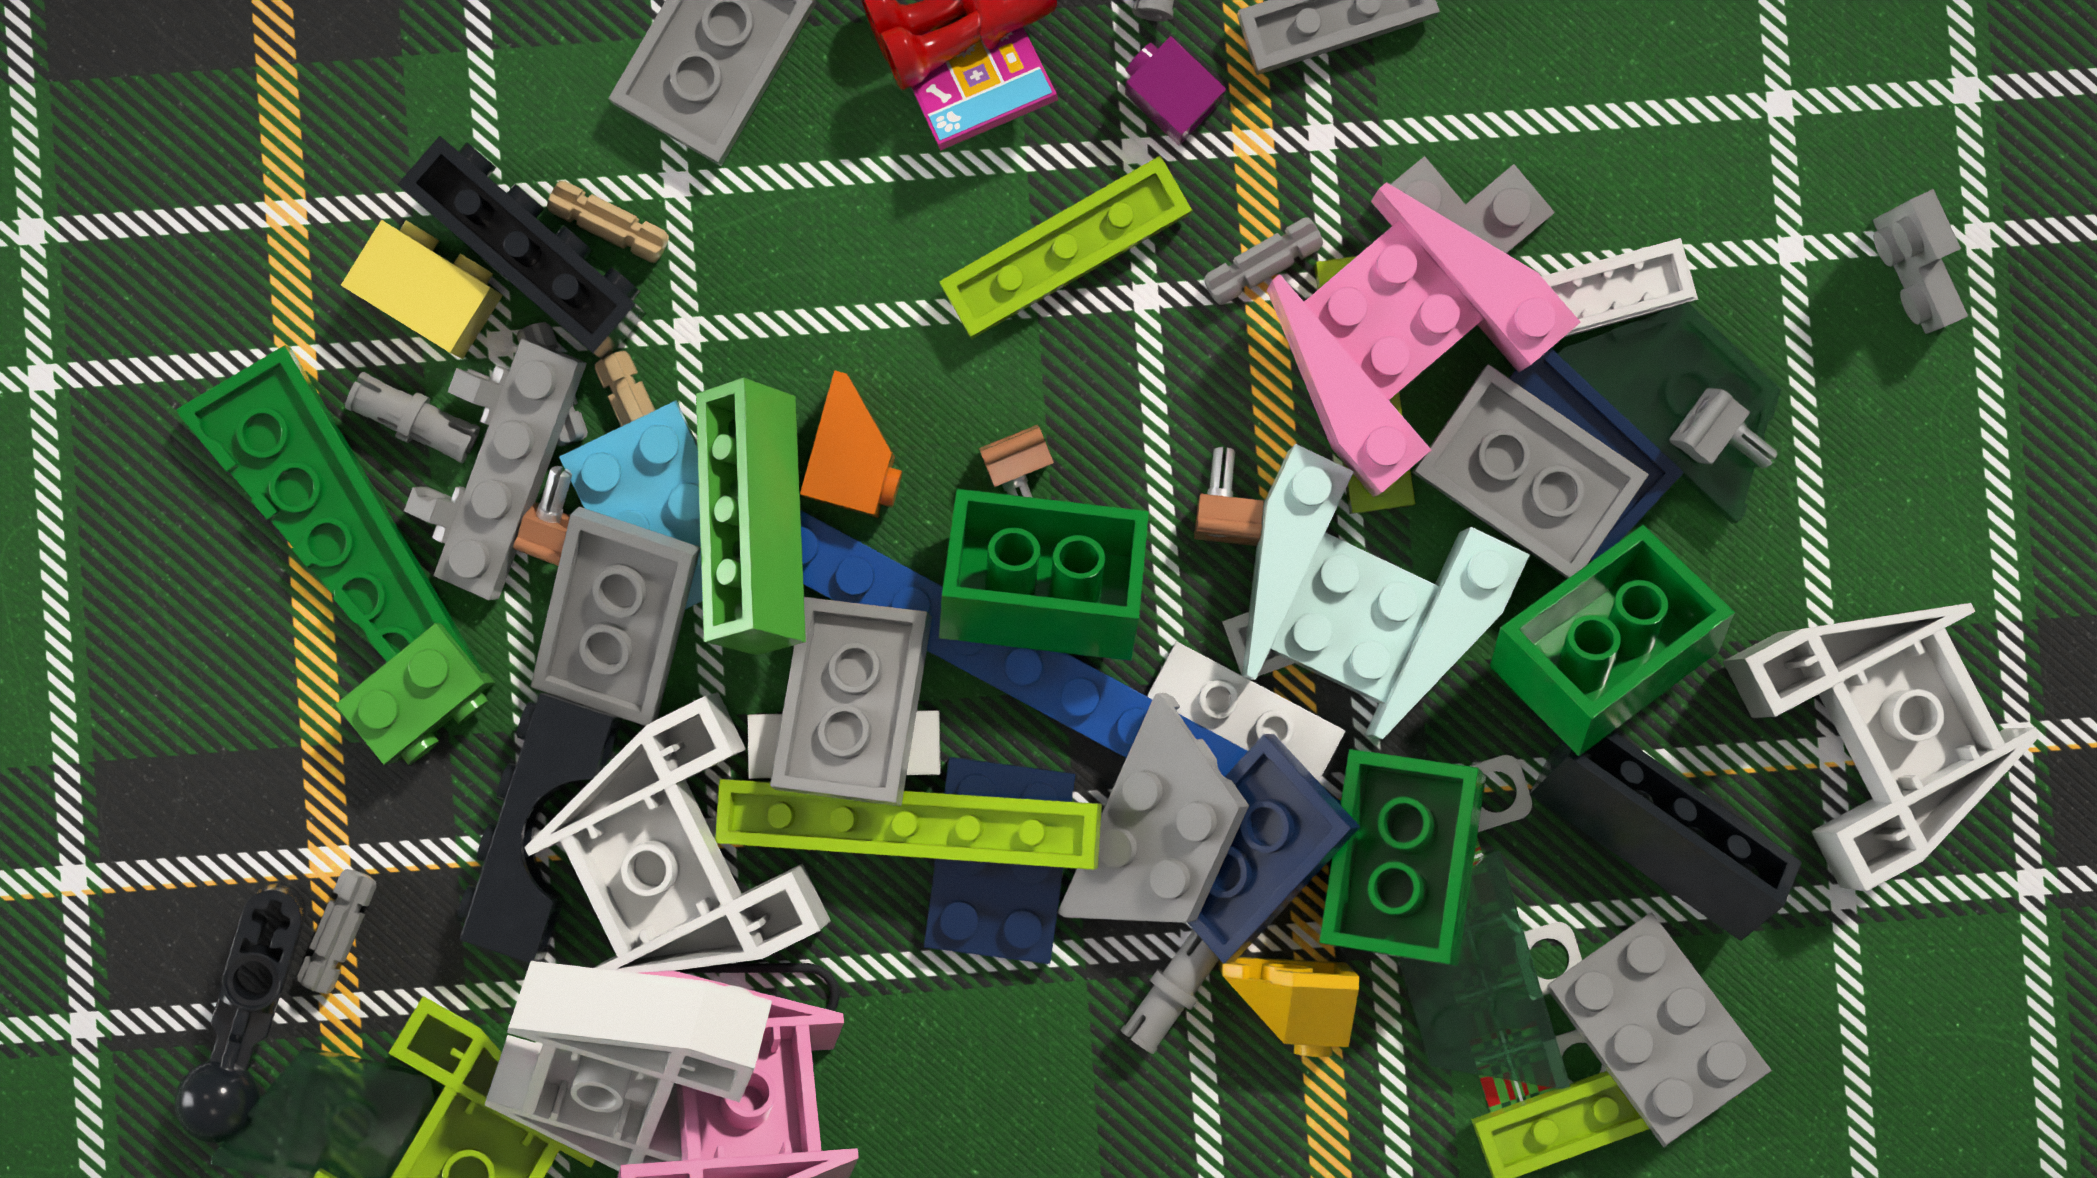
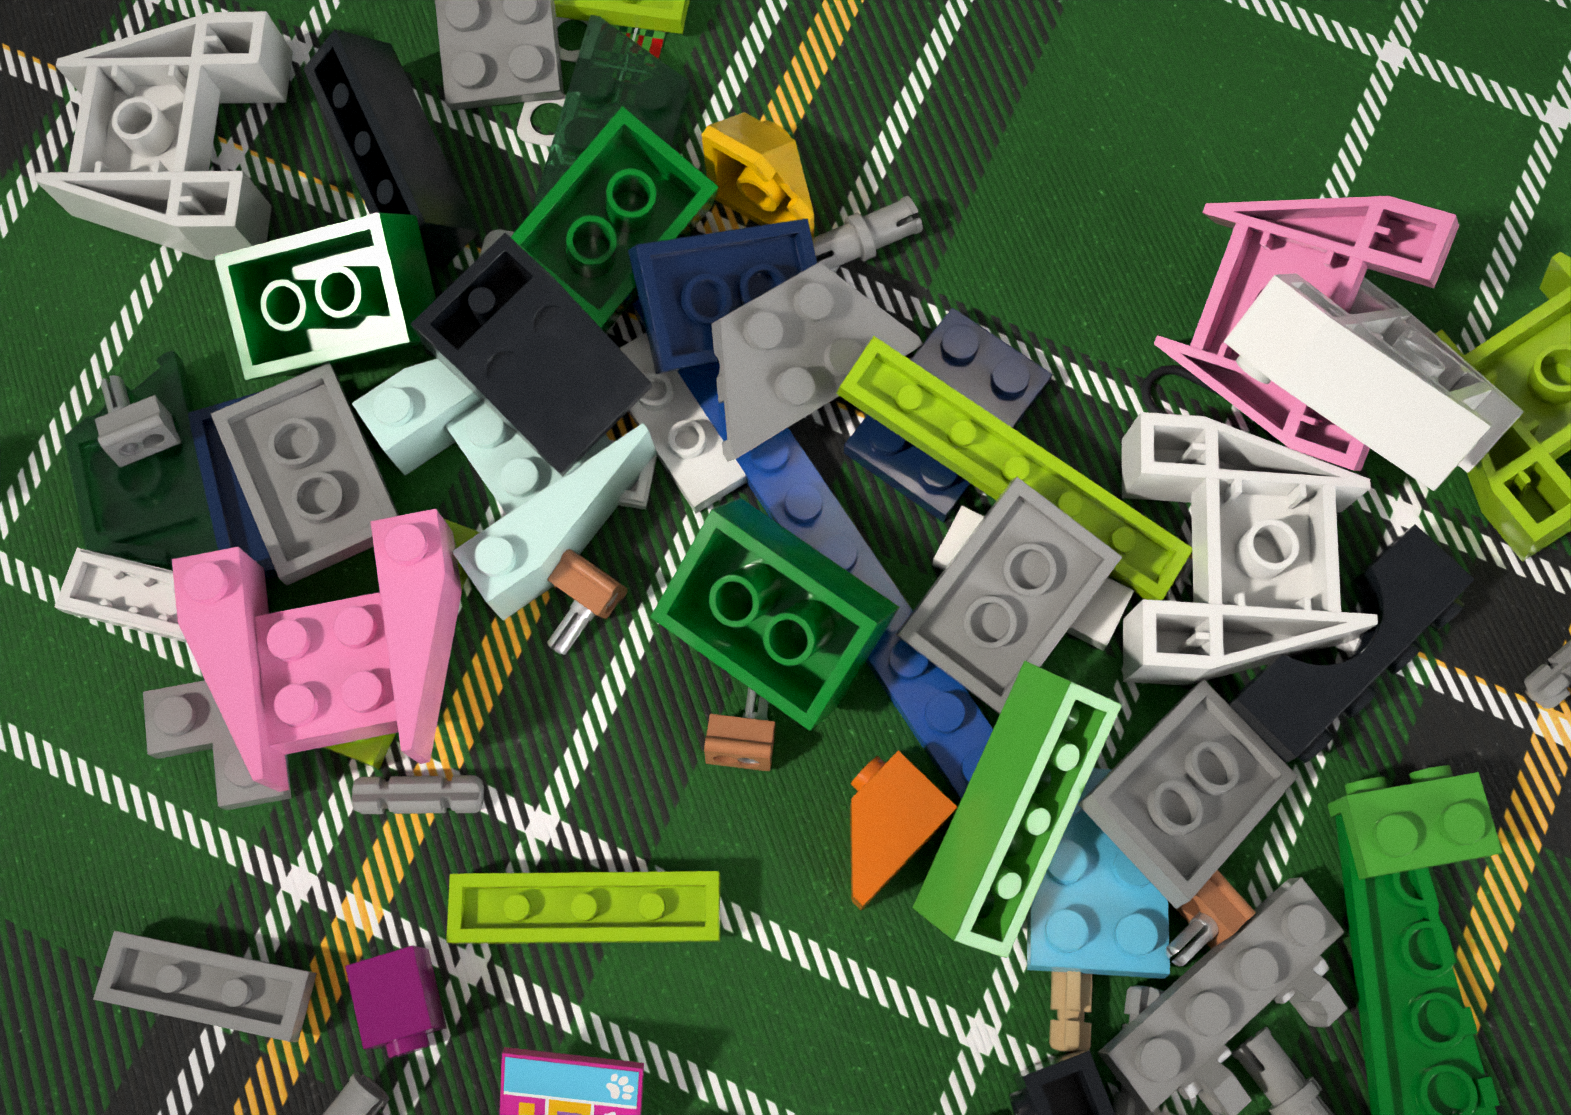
camera: 150 degrees left, 15 degrees down
(1381, 675) = (531, 354): none -> black slope

